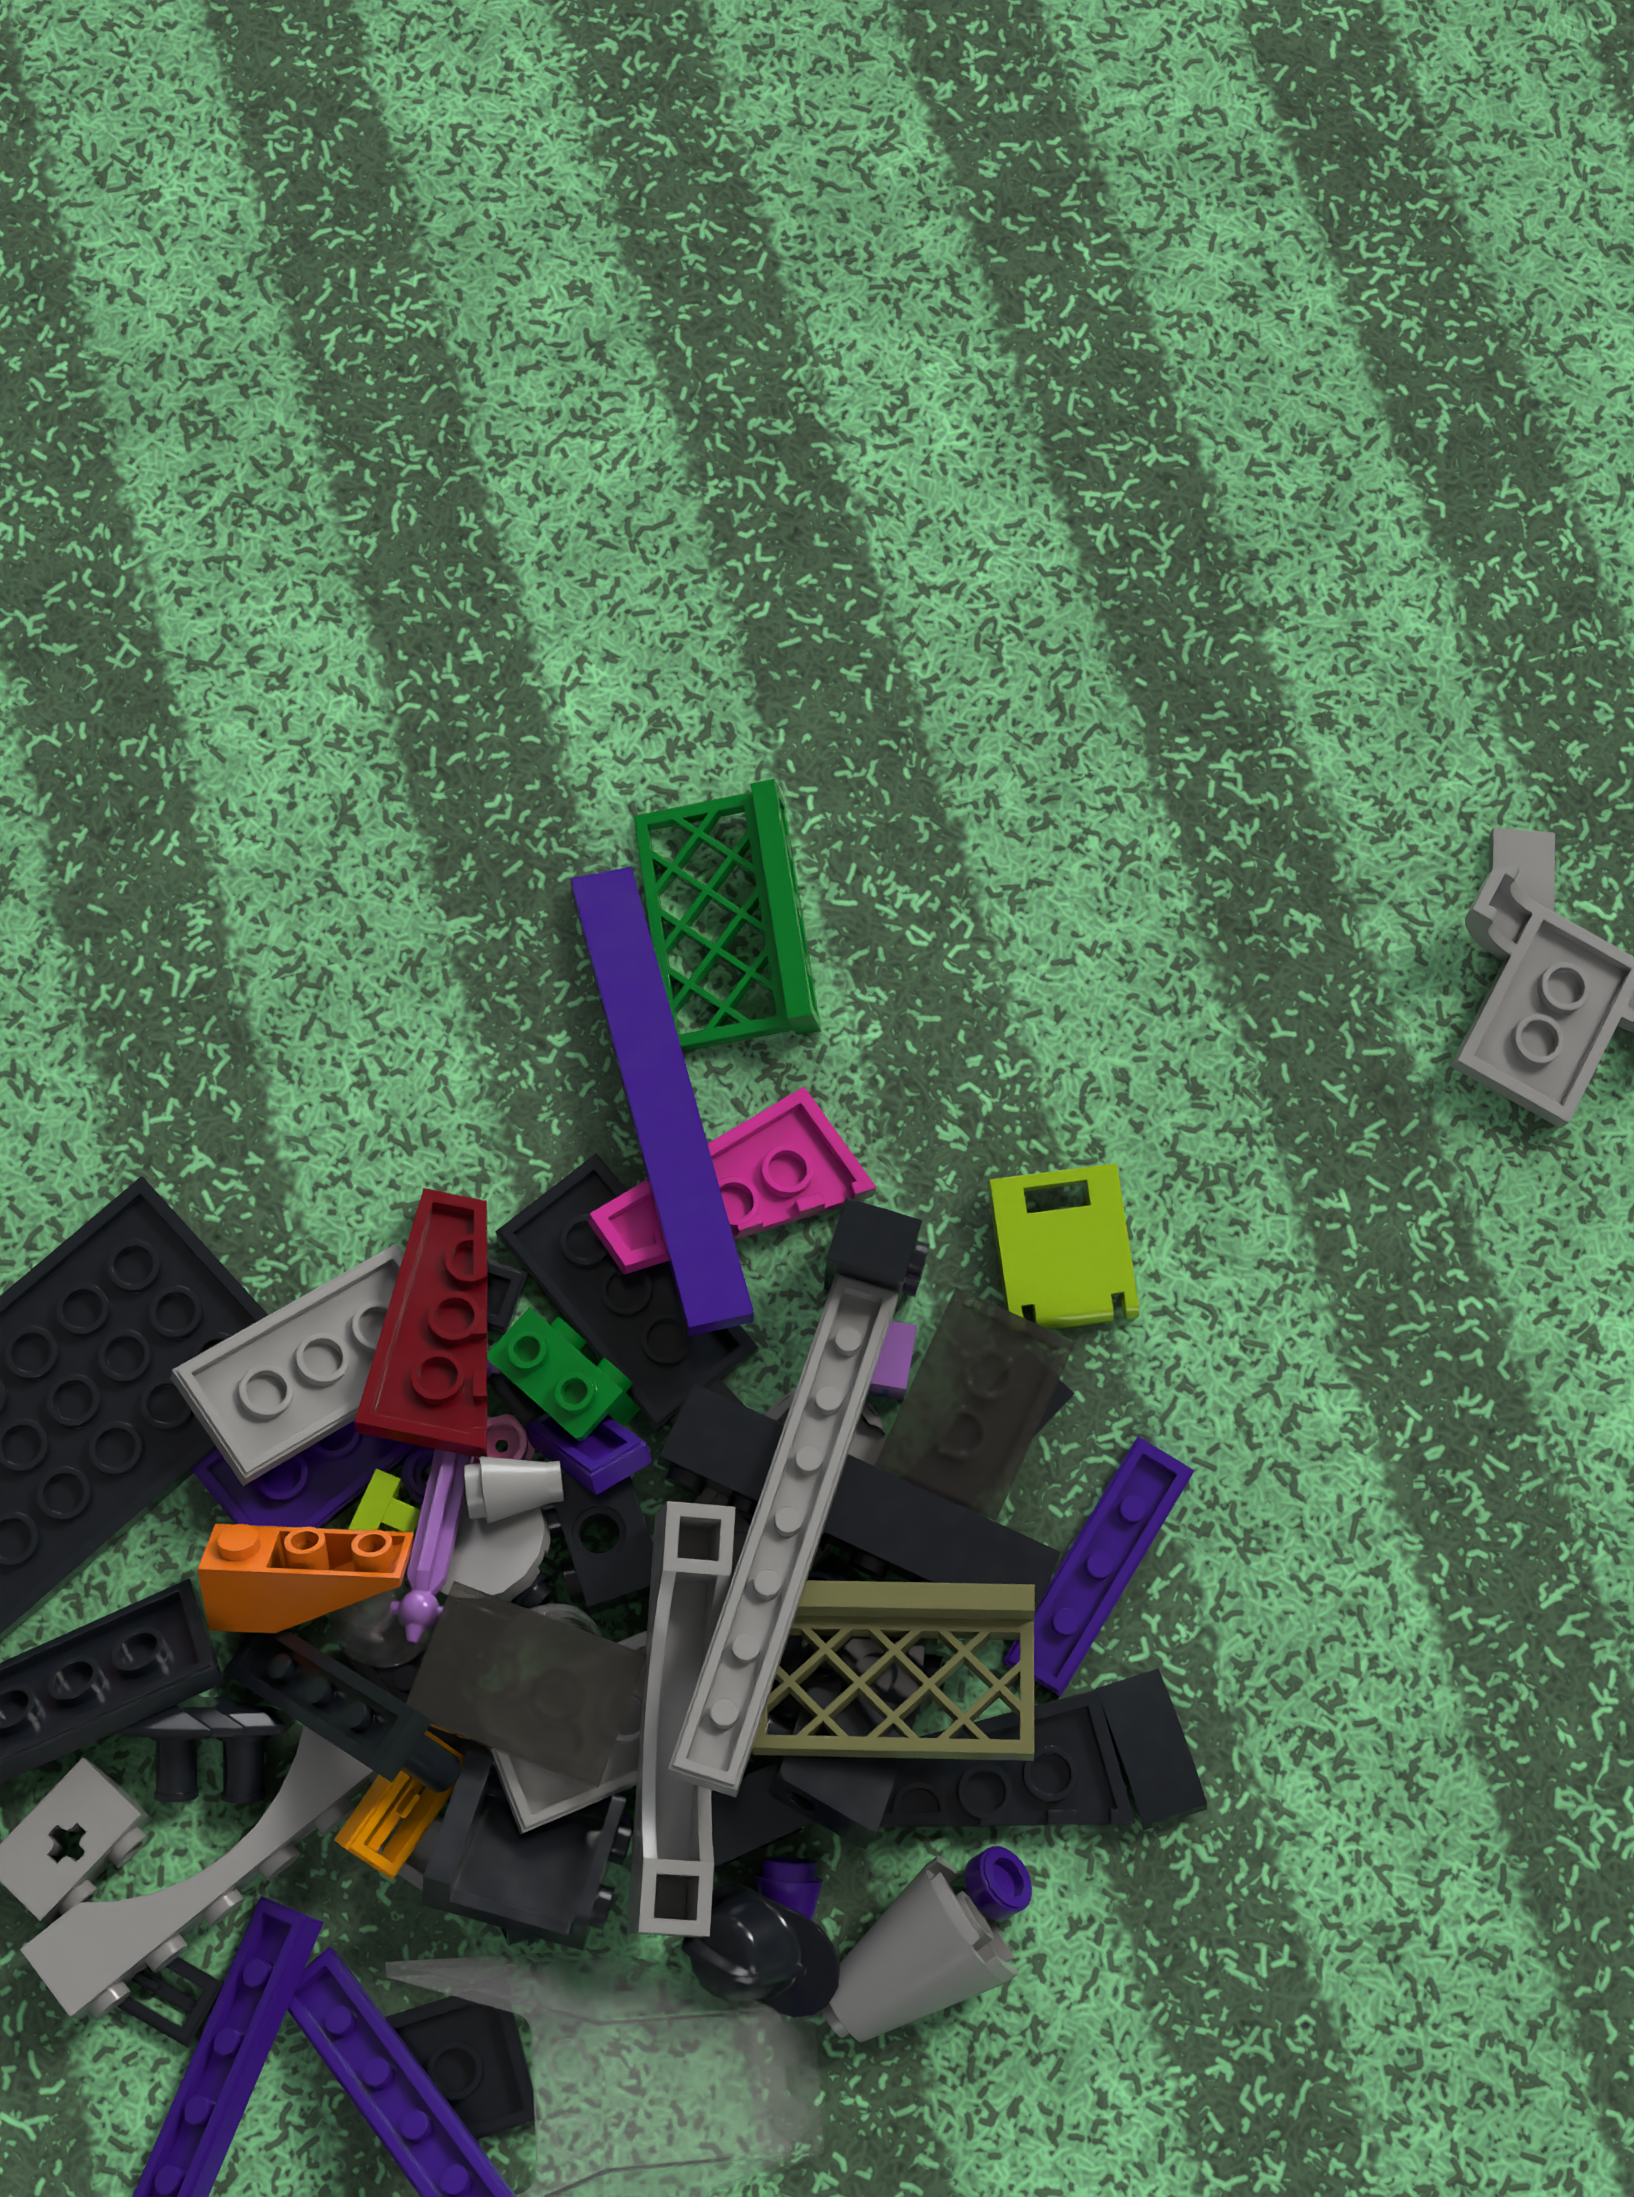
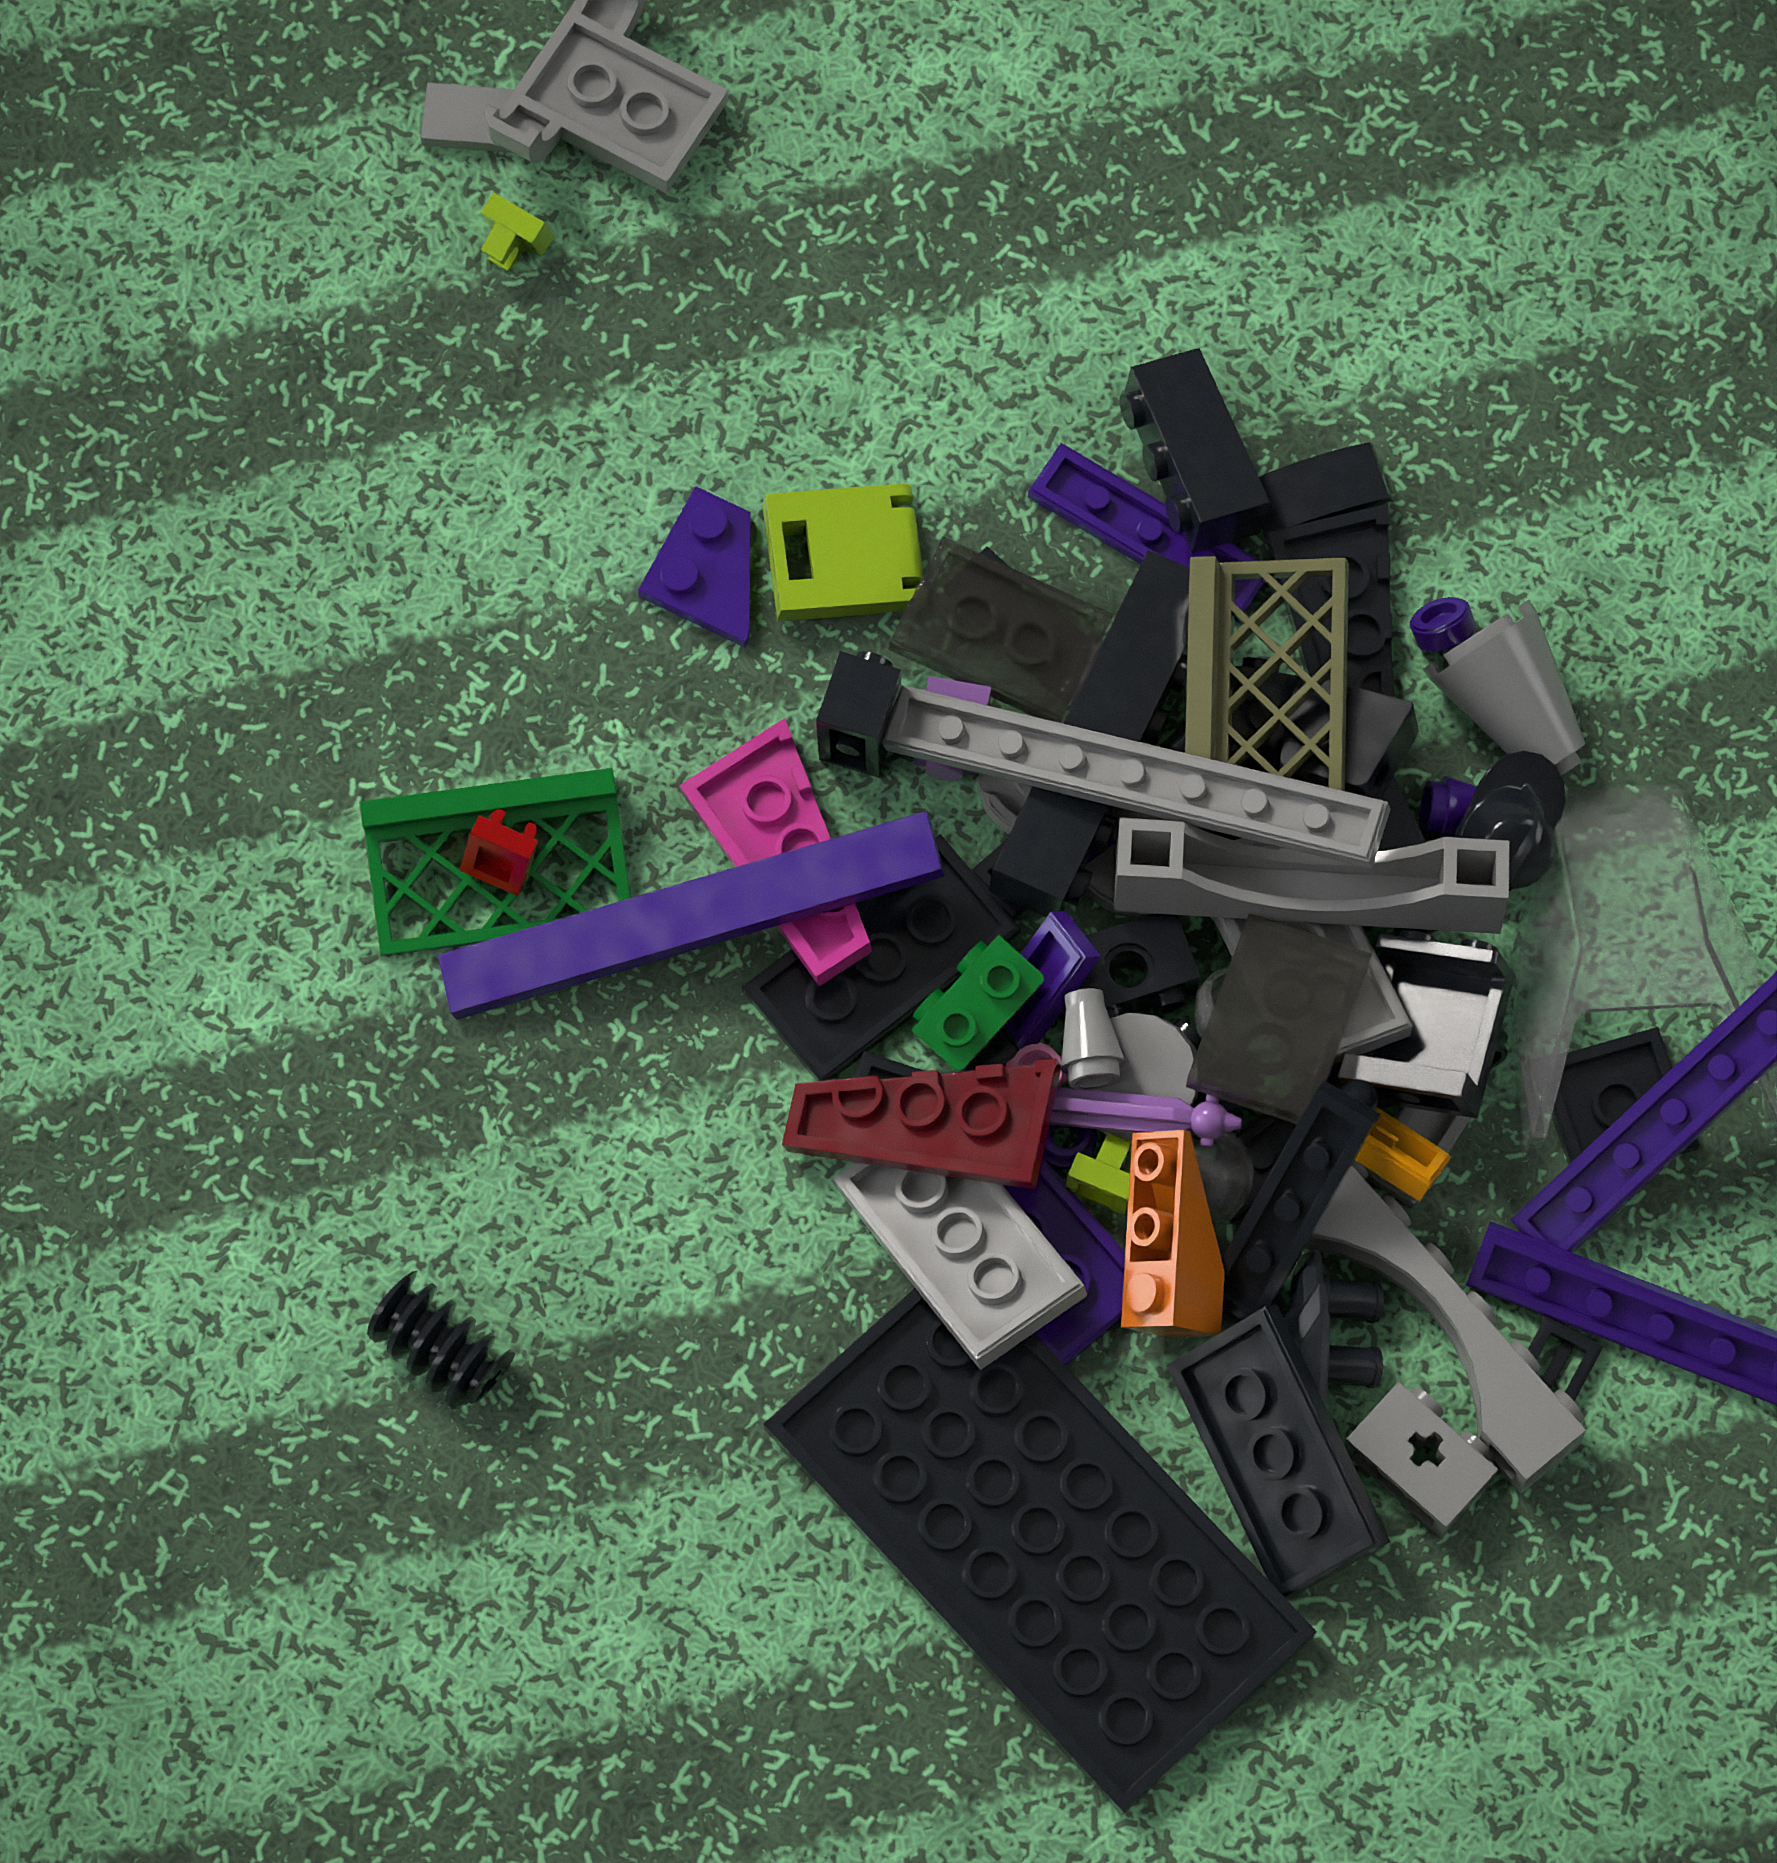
camera: 85 degrees left, 0 degrees up
(236, 871) = (437, 1344): none -> black piece
(721, 909) = (499, 853): none -> red tile
(1044, 1113) = (705, 567): none -> dark purple wing
(1184, 1606) = (1194, 450): none -> black brick
(1394, 914) = (512, 232): none -> lime tile

